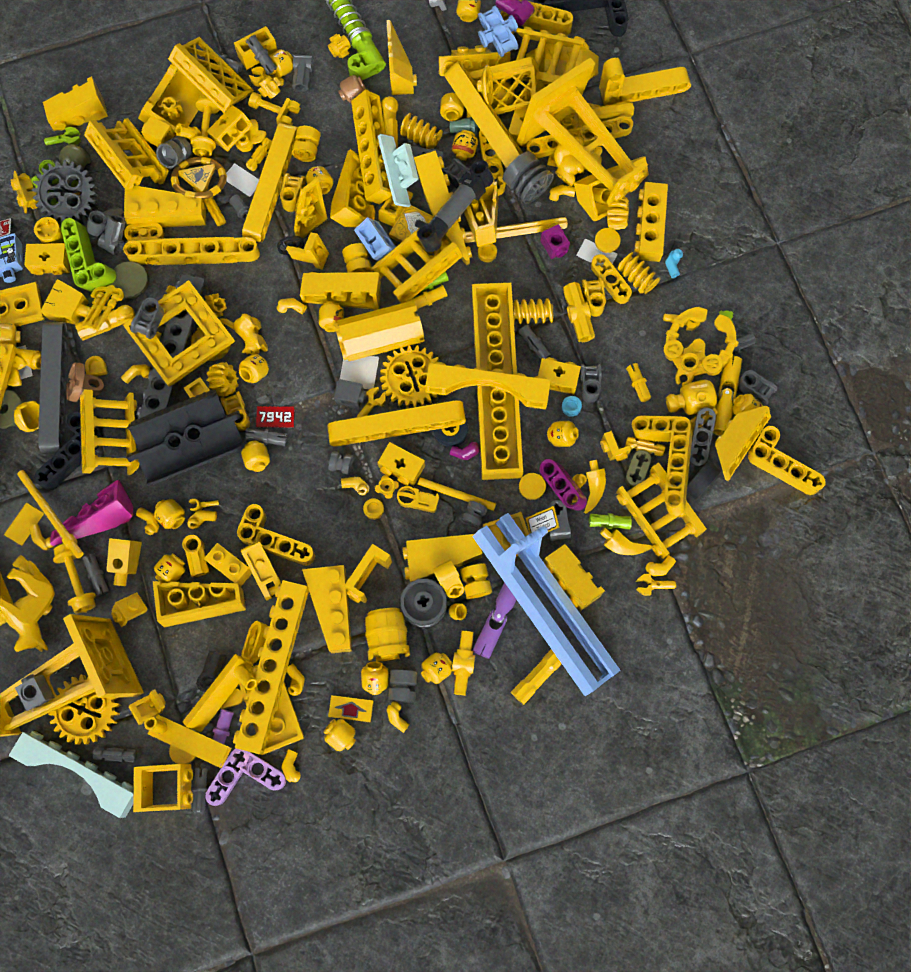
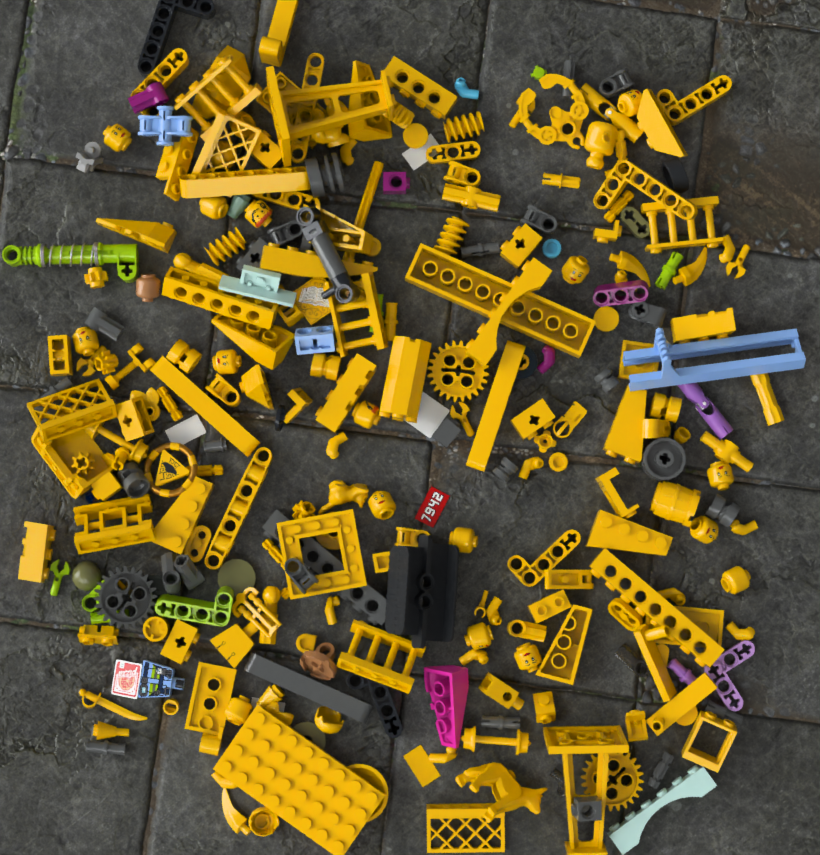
camera: 65 degrees left, 10 degrees up
(68, 539) = (465, 729): yellow bar -> none
(222, 379) = (380, 536): yellow gear -> none
(261, 54) = (77, 354): dark grey pin -> none
(266, 437) = (449, 523): dark grey pin -> none
(350, 708) = (717, 561): yellow tile -> none
(455, 493) = (580, 385): yellow bar -> none
(485, 85) = (221, 168): yellow dish -> none
(544, 518) = (643, 327): sticker -> none
(612, 111) = (296, 60): yellow axle -> none
(710, 422) = (645, 155): dark grey beam -> none

